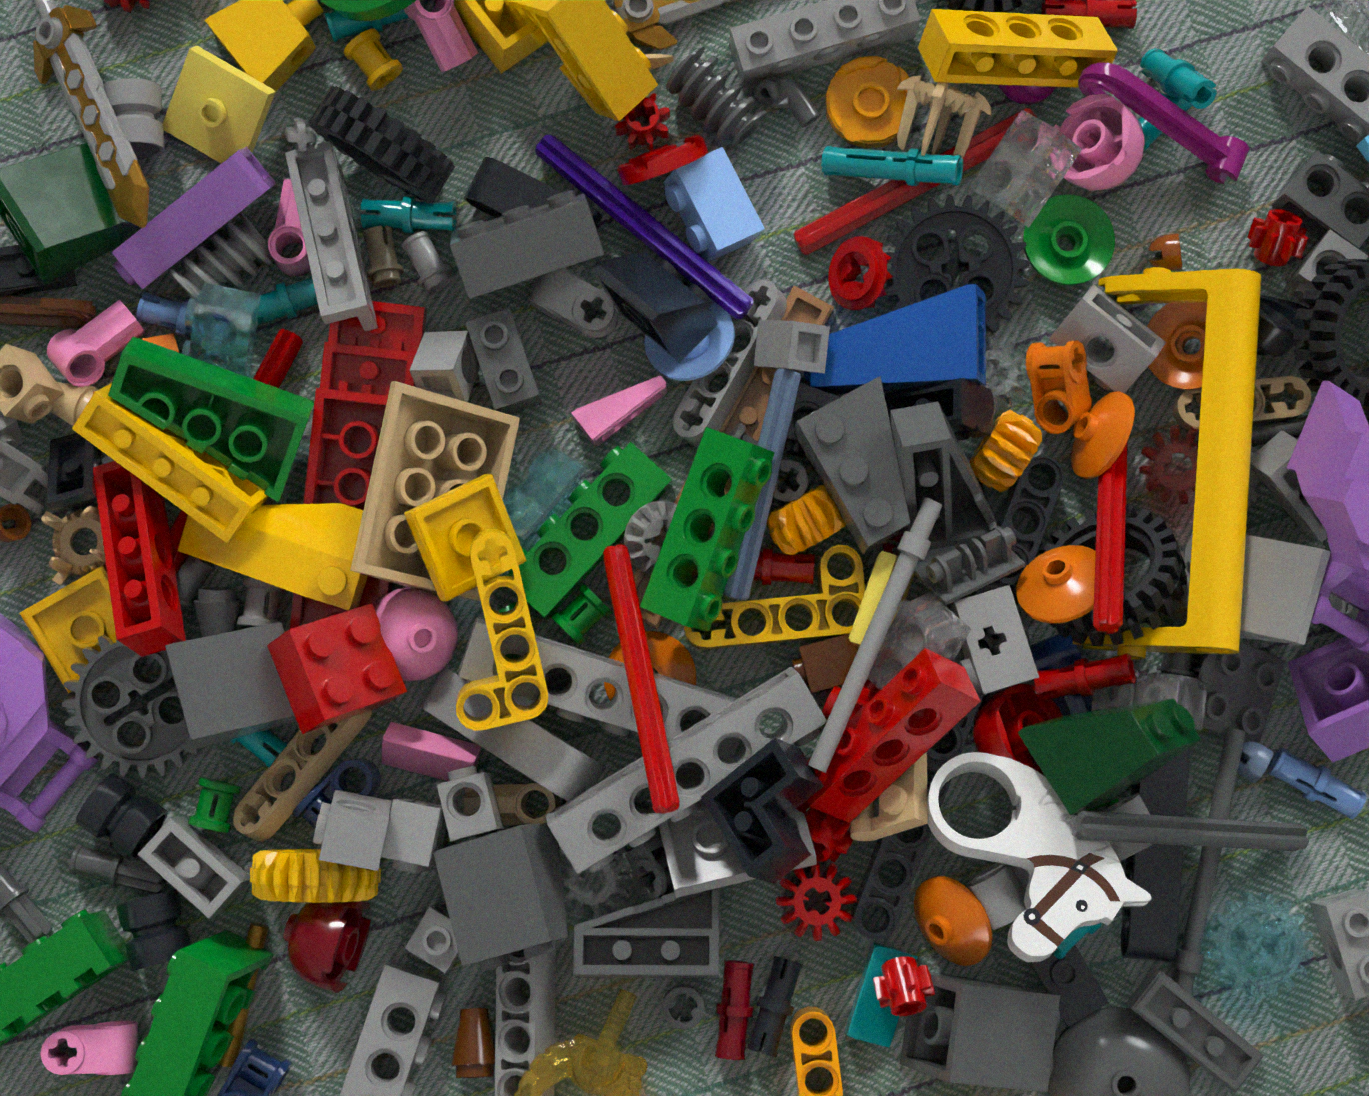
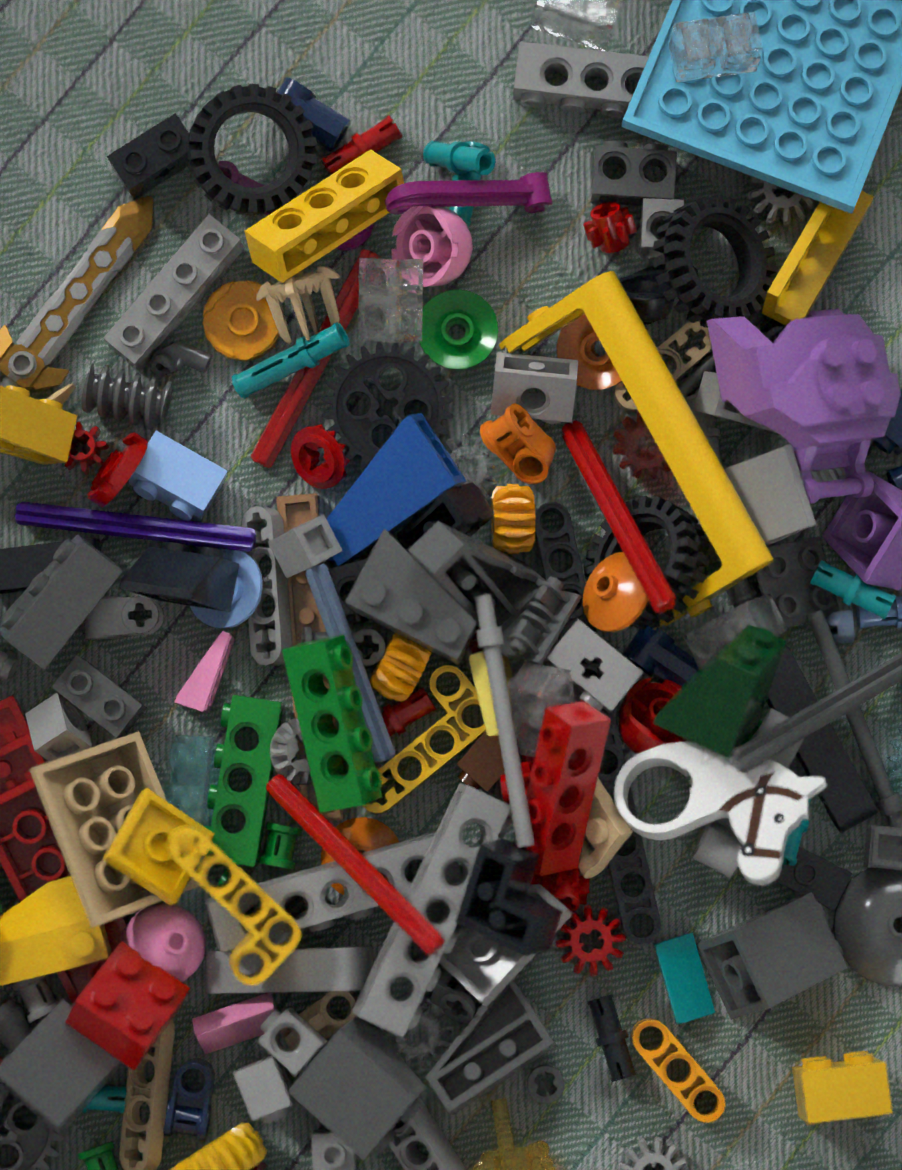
camera: 30 degrees left, 0 degrees up
(352, 829) = (218, 1114): light grey brick -> none
(734, 1010) = (584, 1060): dark red pin -> none
(903, 986) = (694, 960): red gear -> none
(953, 920) = (699, 889): orange dish -> none
(1085, 677) = (677, 649): red pin -> none
(1102, 435) = (575, 460): orange dish -> none
(1170, 252) = (538, 289): dark orange hinge -> none
(1289, 733) = (852, 589): none -> teal pin

